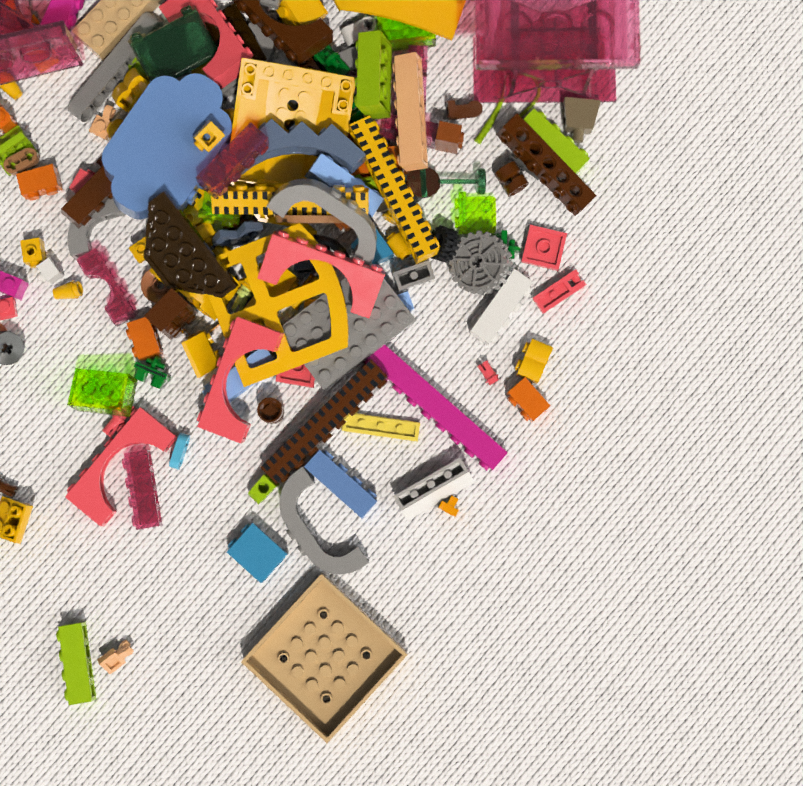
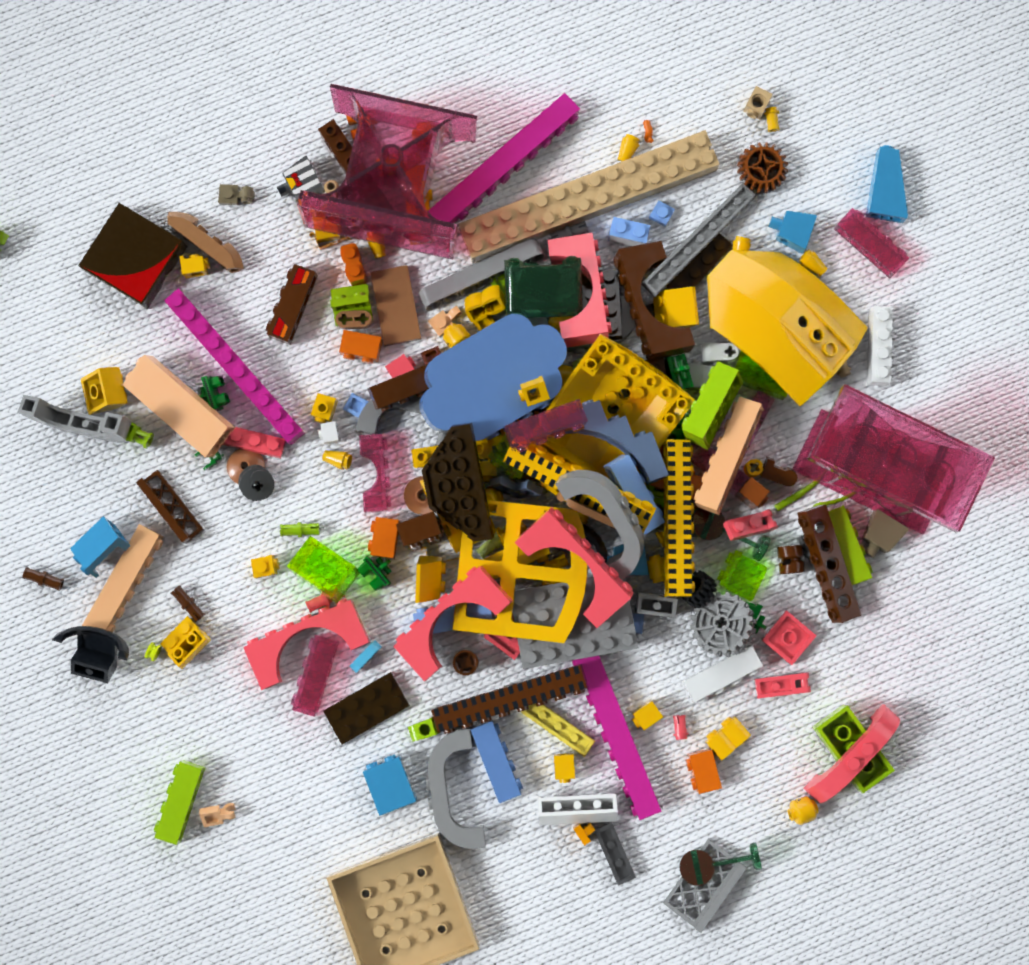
camera: 25 degrees right, 0 degrees up
(50, 417) = (265, 566): none -> yellow bracket
(53, 132) = (395, 305): none -> medium nougat tile
(59, 236) = (355, 405): none -> light blue tile
(65, 369) = (299, 529): none -> lime pin
(203, 496) = (366, 708): none -> dark brown plate
(403, 458) = (564, 767): none -> yellow brick
(434, 114) = (759, 468): none -> yellow bush
(453, 377) = (646, 715): none -> yellow brick
(461, 166) = (750, 525): none -> coral plate
(486, 511) = (614, 853): none -> flat silver plate
(566, 486) = (698, 867): none -> piece
(595, 501) = (715, 899): none -> light grey fence
(631, 390) = (803, 810): none -> yellow head
(647, 314) = (839, 733): none -> lime brick
(662, 286) = (856, 757): none -> coral arch

